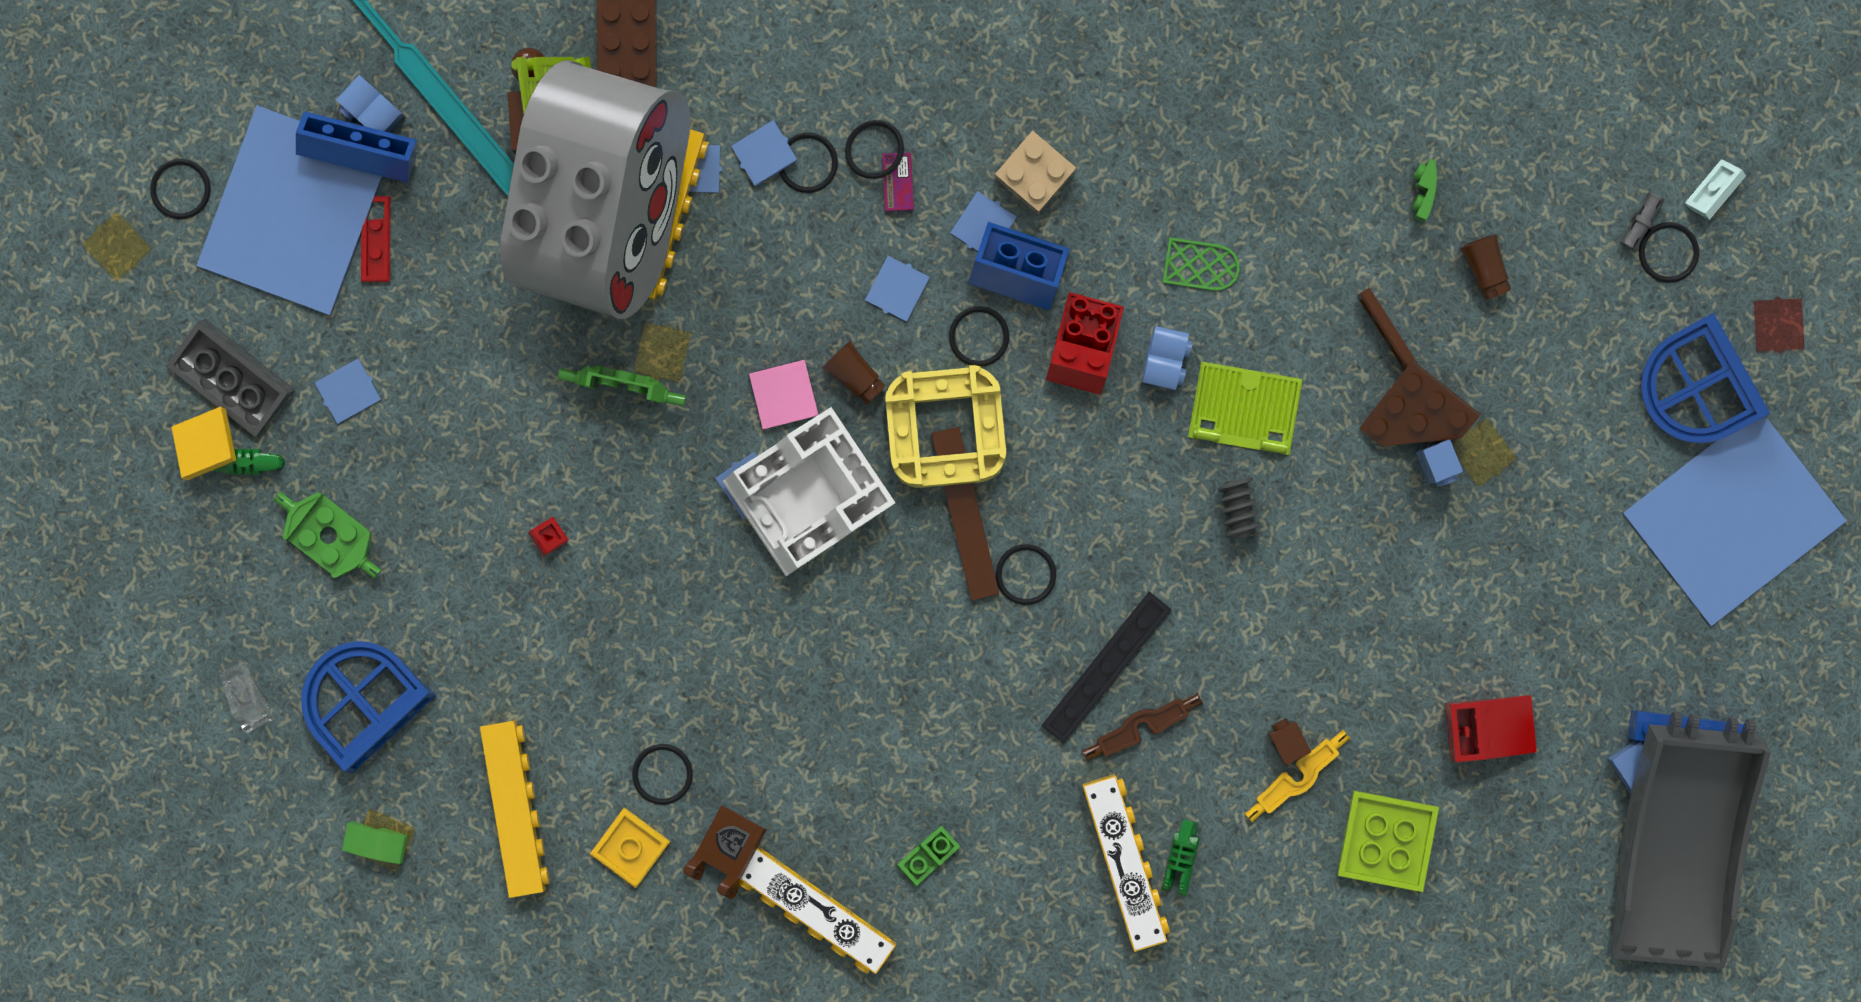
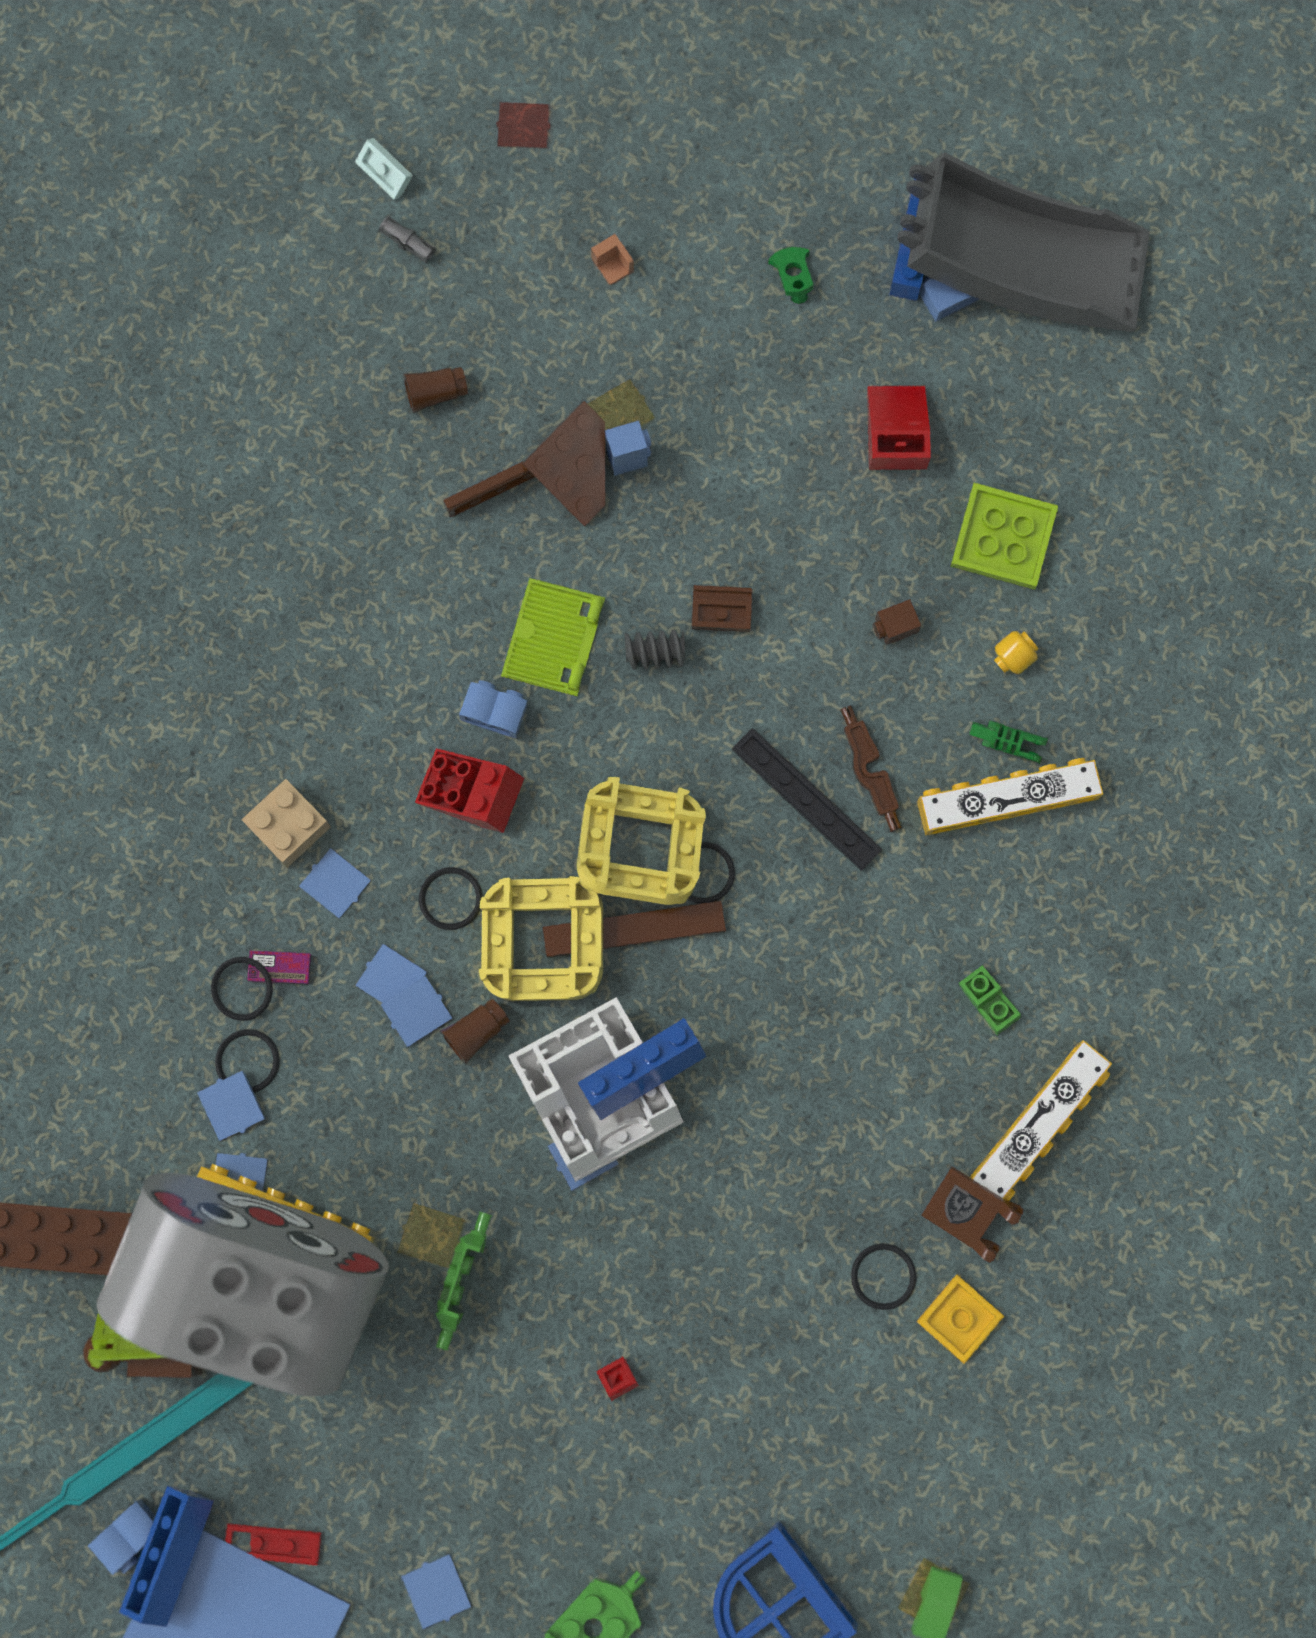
camera: 90 degrees left, 10 degrees down
(513, 808) = (909, 1443): yellow brick -> none
(783, 394) = (490, 1108): bright pink tile -> none
(828, 533) = (642, 1069): none -> blue brick
(868, 315) = (416, 1011): none -> medium blue piece
(1018, 266) = (382, 849): blue slope -> none
(1085, 512) = (647, 804): none -> light yellow plate
(1207, 266) = (404, 660): bright green window -> none
(1269, 859) = (1016, 652): none -> yellow head
(1285, 786) = (942, 631): yellow piece -> none
(1287, 569) = (721, 608): none -> reddish brown plate
(1426, 182) = (344, 436): bright green slope -> none
(1639, 429) = (612, 259): none -> nougat panel
(1660, 608) = (798, 285): none -> green piece
(1687, 272) = (441, 194): black tyre -> none
(1731, 368) = (560, 167): blue window -> none
(1734, 518) = (707, 183): medium blue piece -> none

